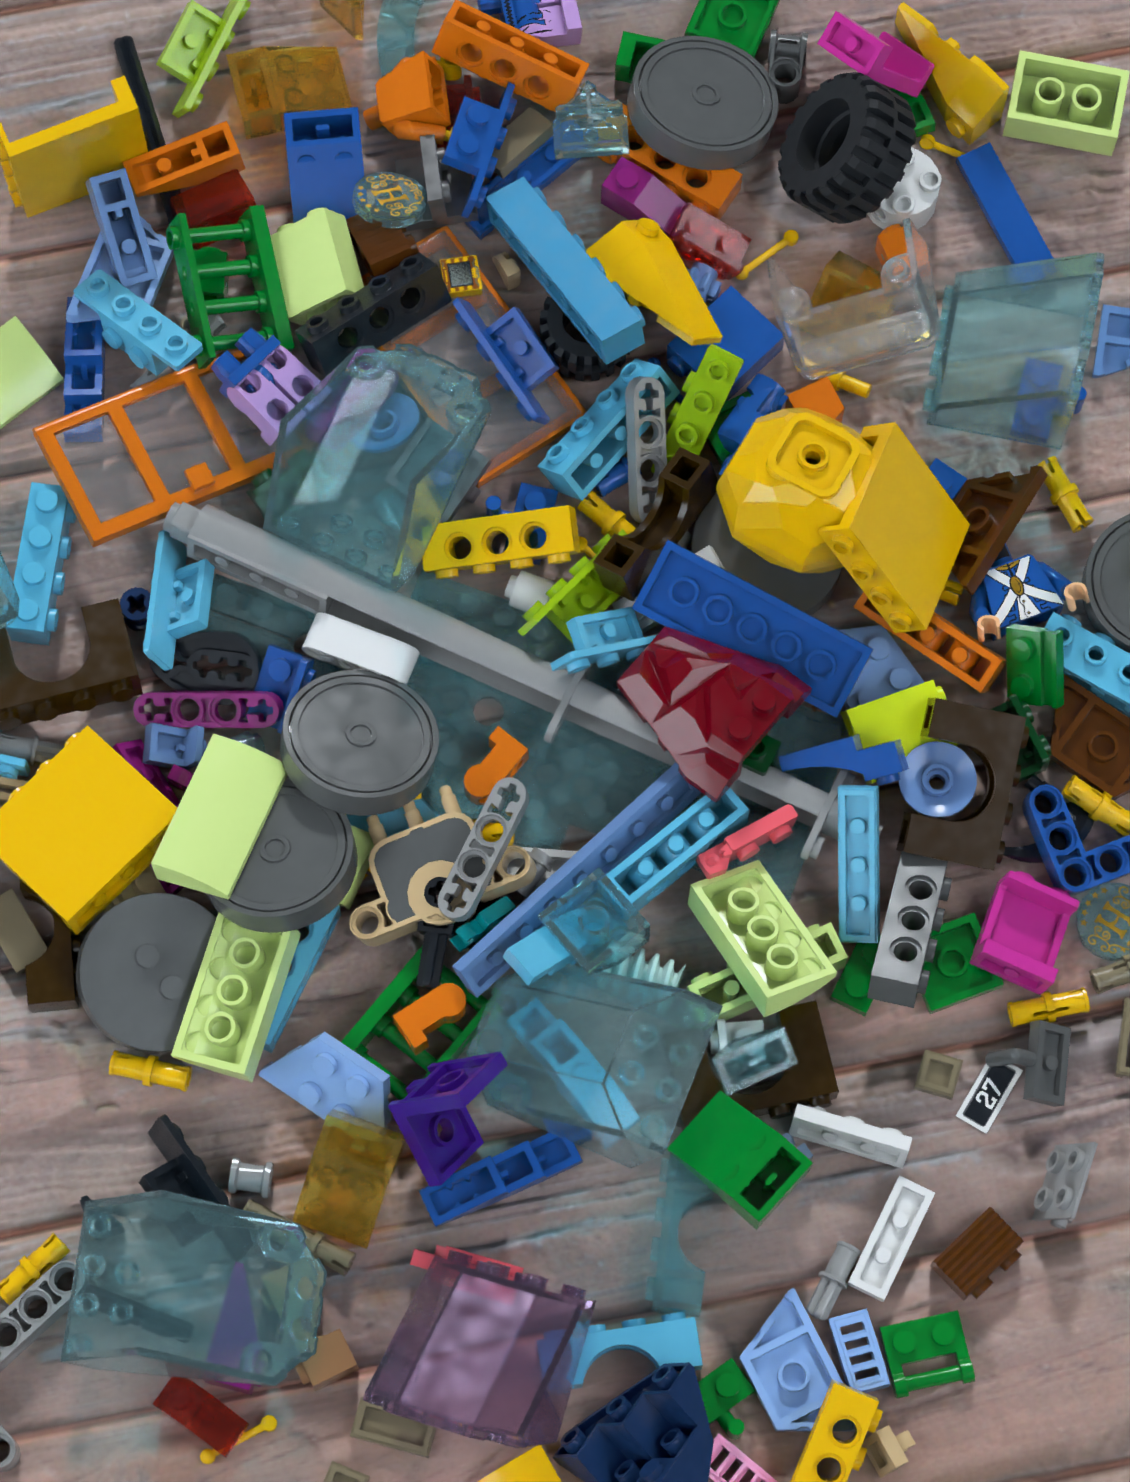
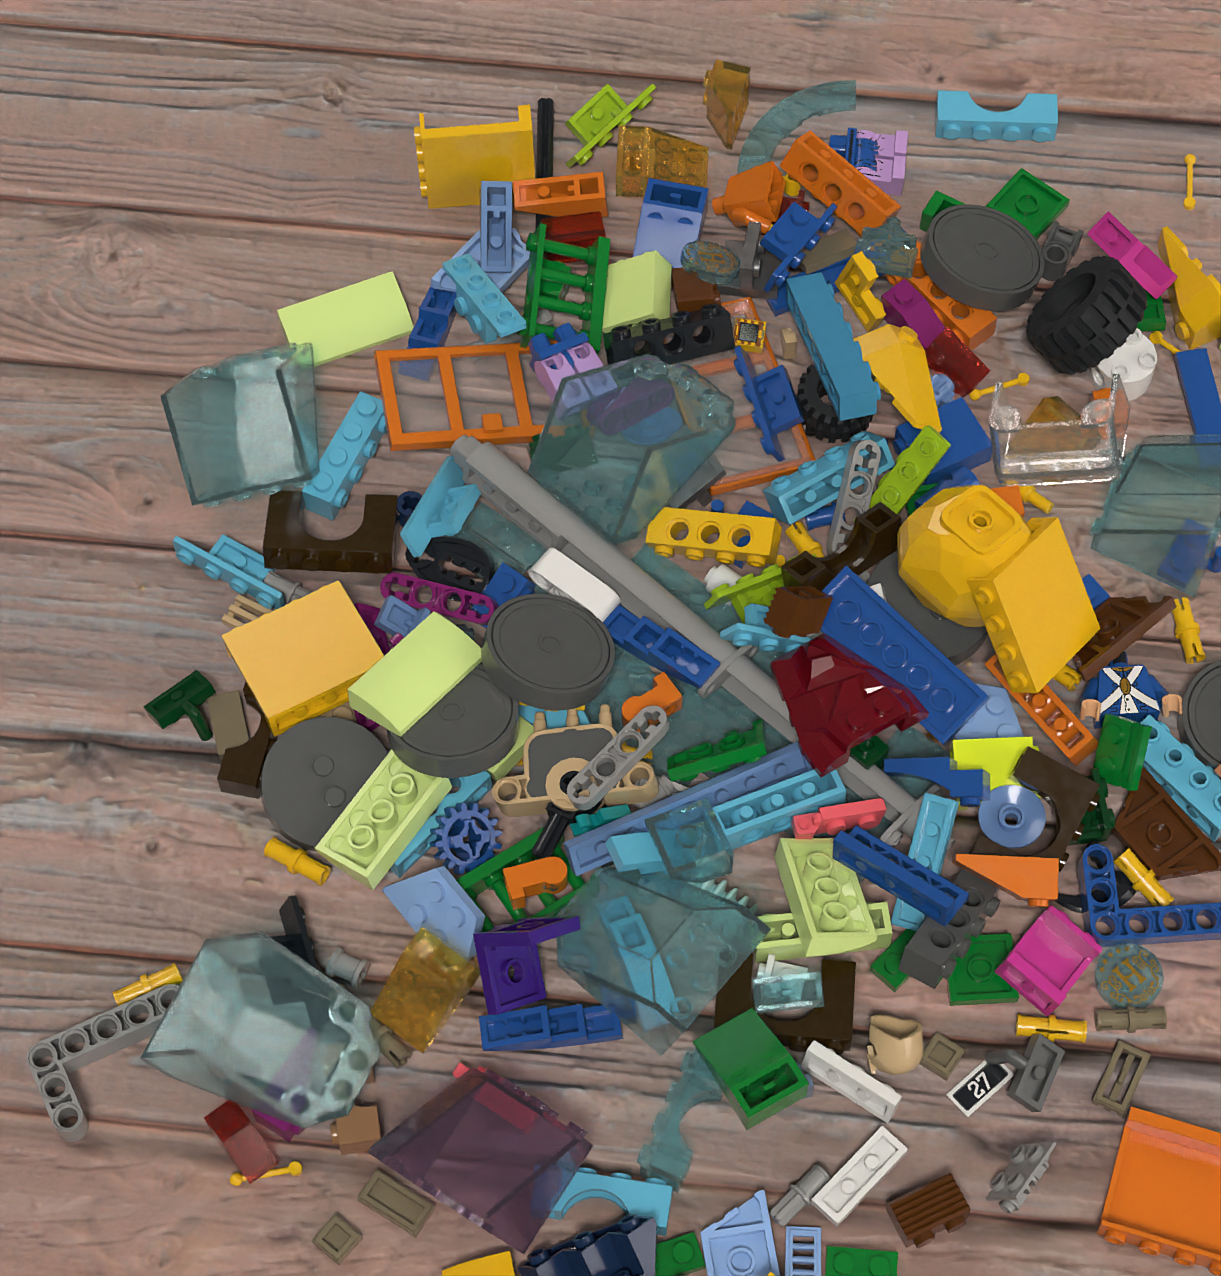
camera: 20 degrees right, 10 degrees down
(331, 986) = (464, 826): none -> blue gear
(484, 697) = (660, 648): none -> blue slope
(567, 180) = (855, 287): none -> yellow plate
(602, 796) = (729, 750): none -> green wing
(631, 613) = (797, 611): none -> reddish brown brick
(836, 895) = (895, 878): none -> blue fence
(886, 1080) = (895, 1046): none -> tan helmet
(973, 849) = (1020, 877): none -> orange slope

